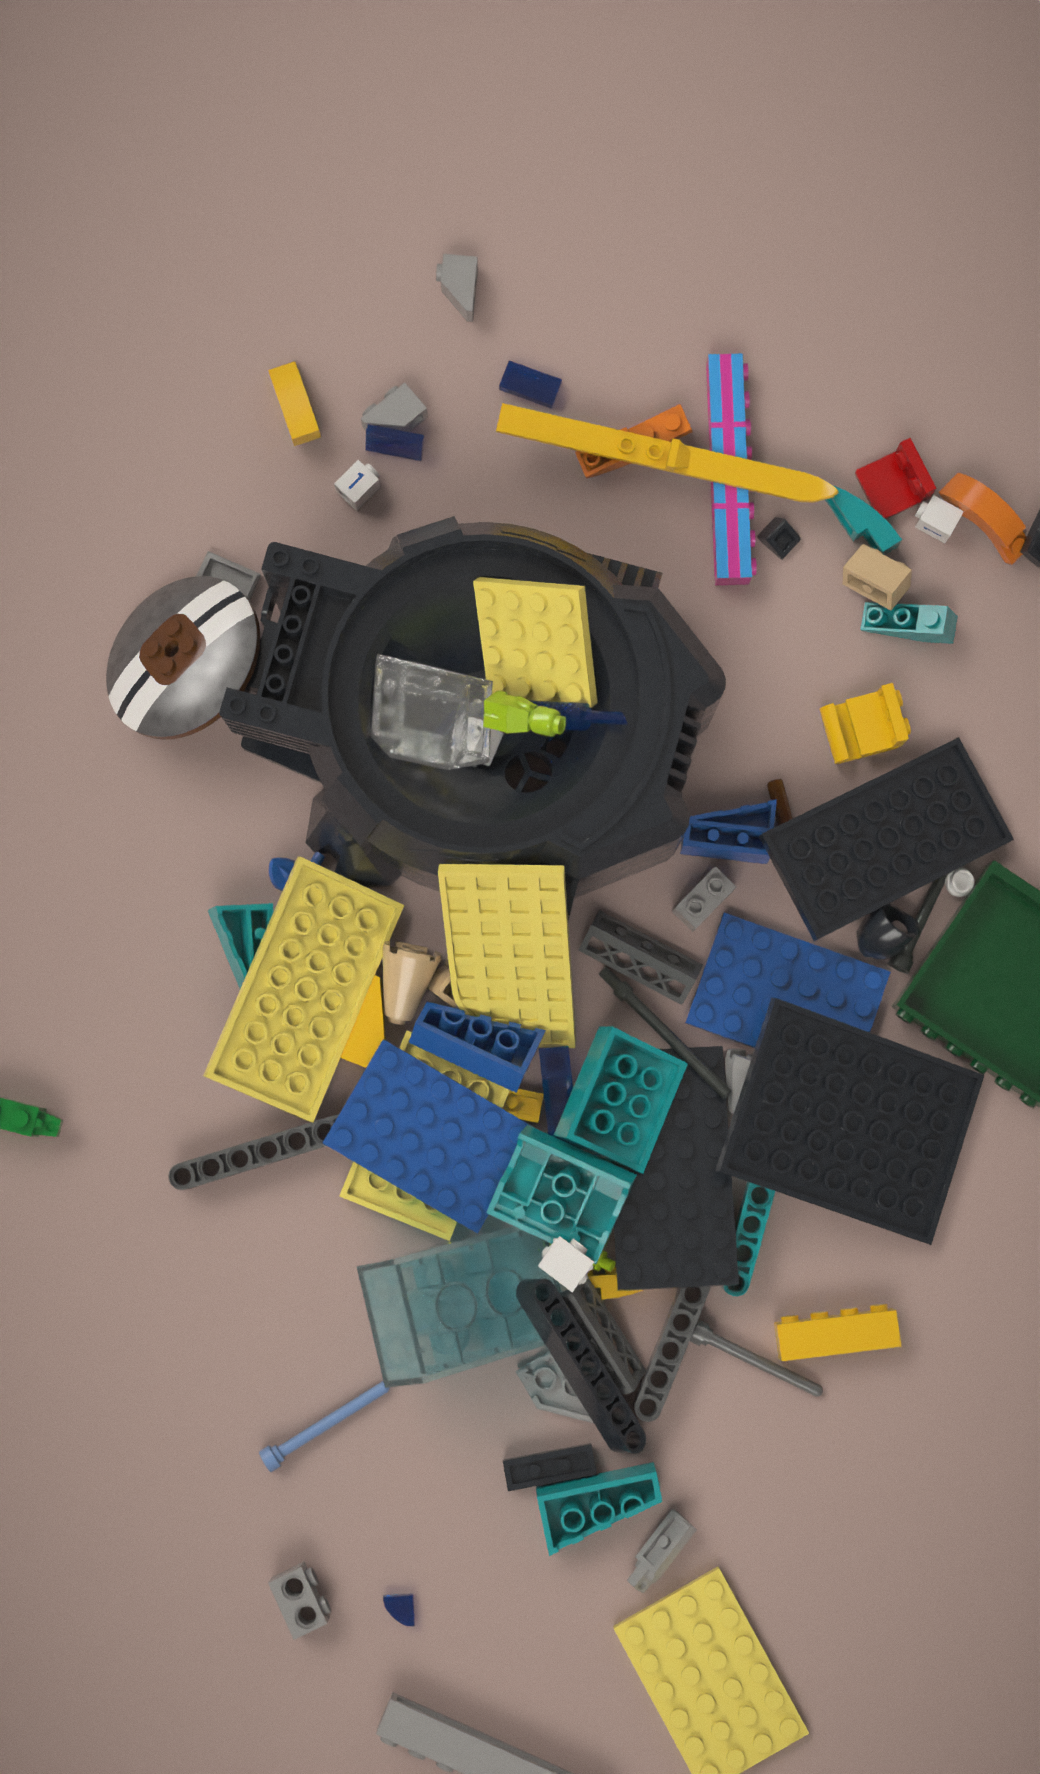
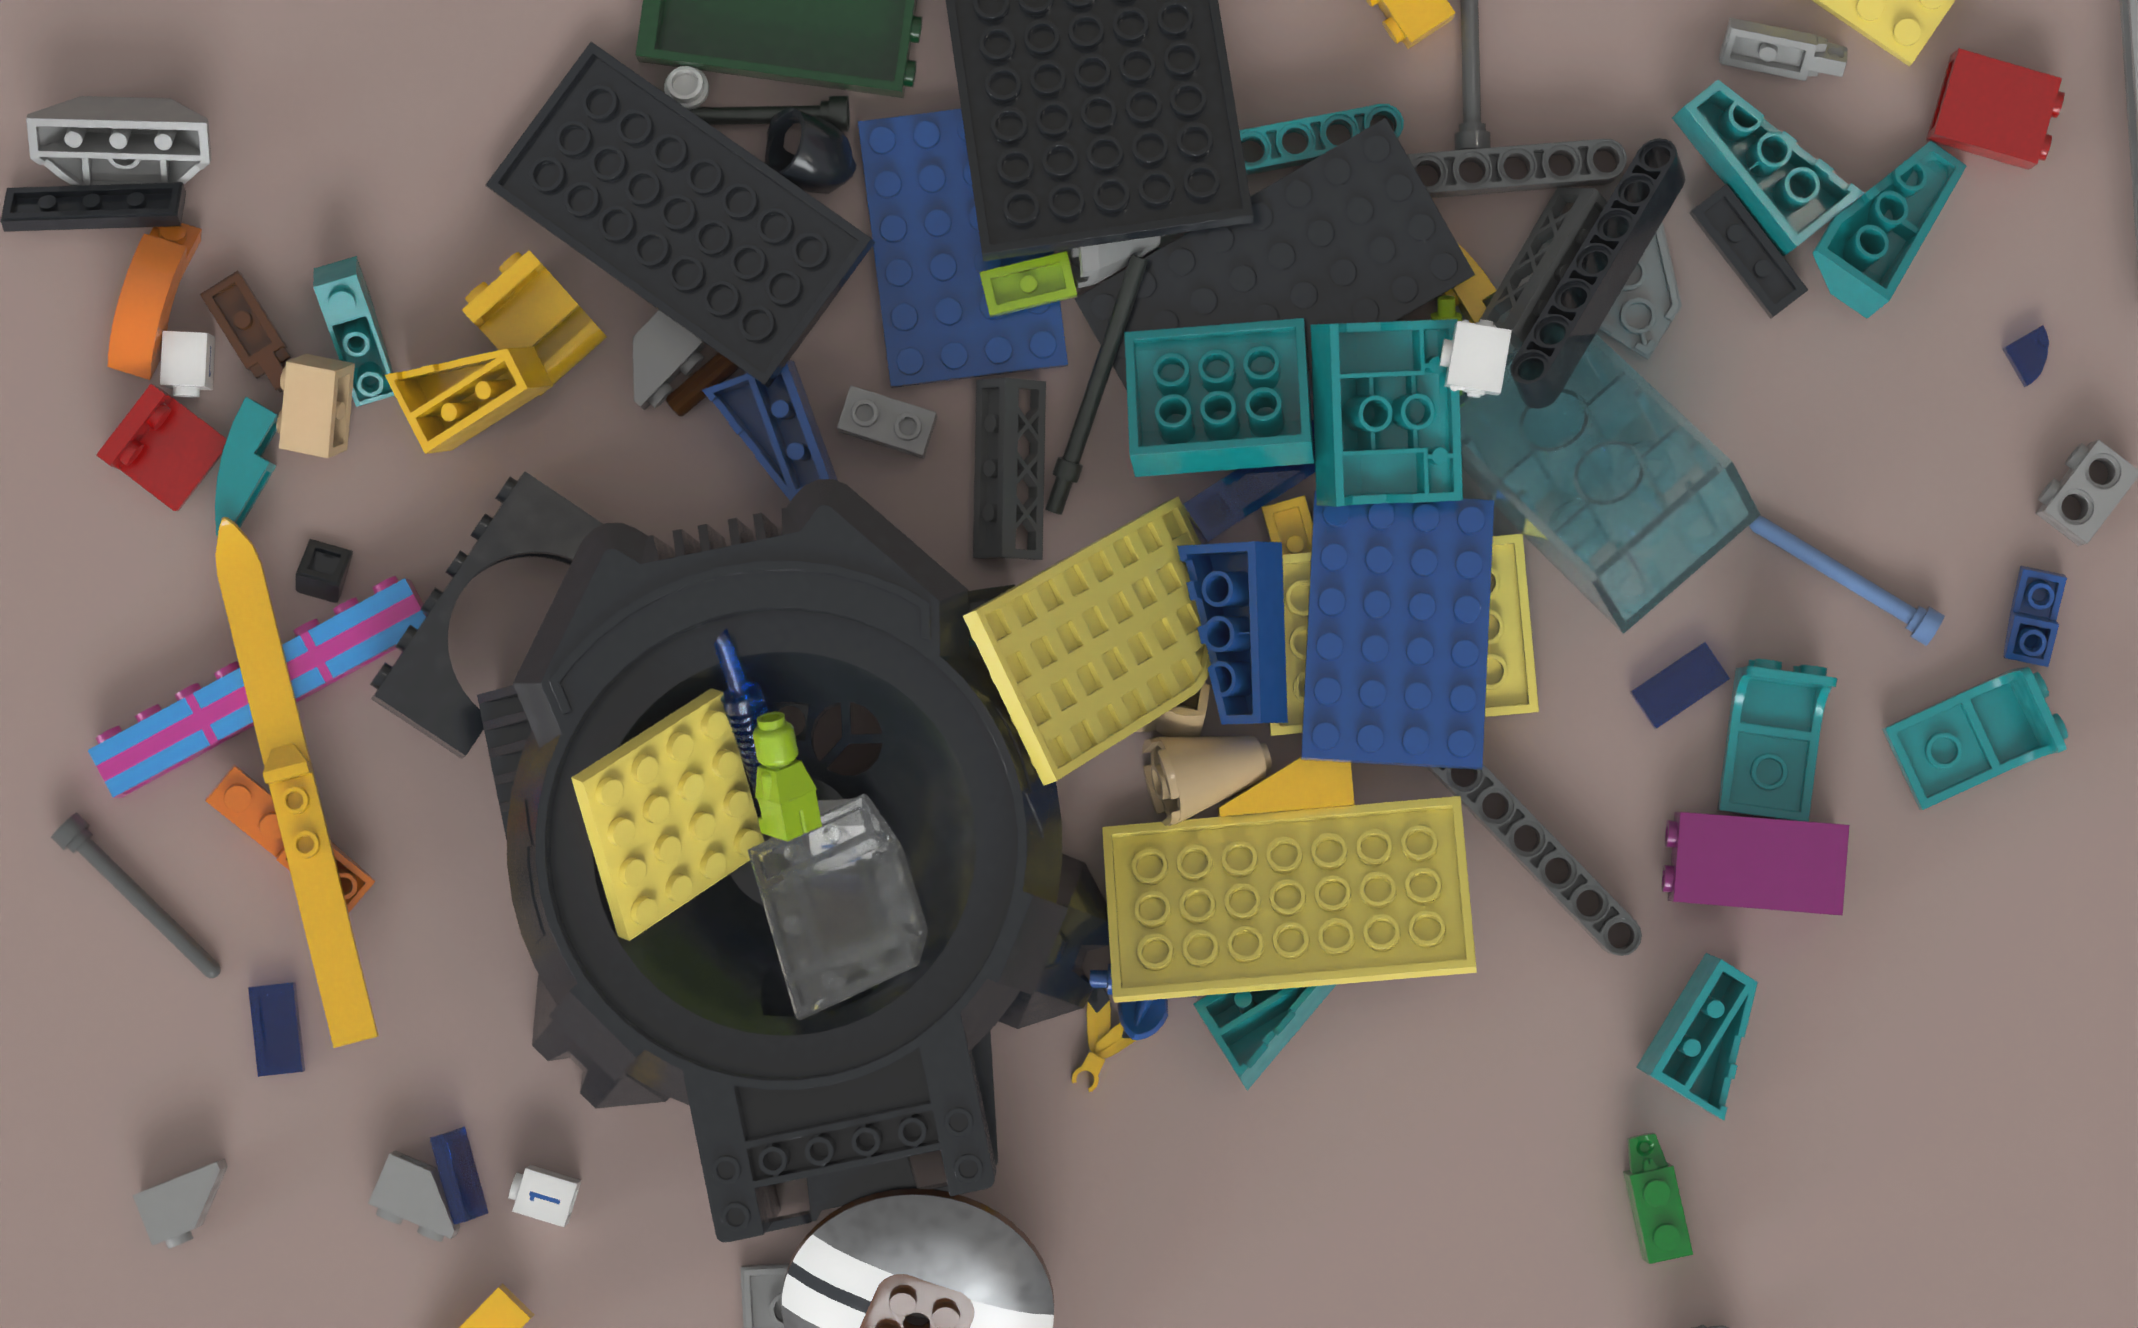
camera: 120 degrees left, 5 degrees up
(98, 1194) = (1703, 1035): none -> teal wedge
(182, 1280) = (1756, 863): none -> magenta slope
(189, 1453) = (1976, 736): none -> teal bracket
(242, 1527) = (2034, 616): none -> blue slope
(249, 1328) = (1773, 739): none -> teal bracket
(280, 843) = (1101, 1040): none -> yellow piece
(312, 1289) = (1679, 685): none -> clear blue tile
(520, 1555) = (1881, 232): none -> teal wedge
(559, 1666) = (1996, 109): none -> red brick
(687, 554) = (422, 680): none -> black arch
(696, 326) = (76, 837): none -> dark grey piece
(744, 1021) = (1028, 284): none -> lime plate
(806, 784) = (659, 355): none -> light grey slope
(840, 663) = (467, 395): none -> yellow wedge
(942, 562) = (247, 327): none -> reddish brown hinge

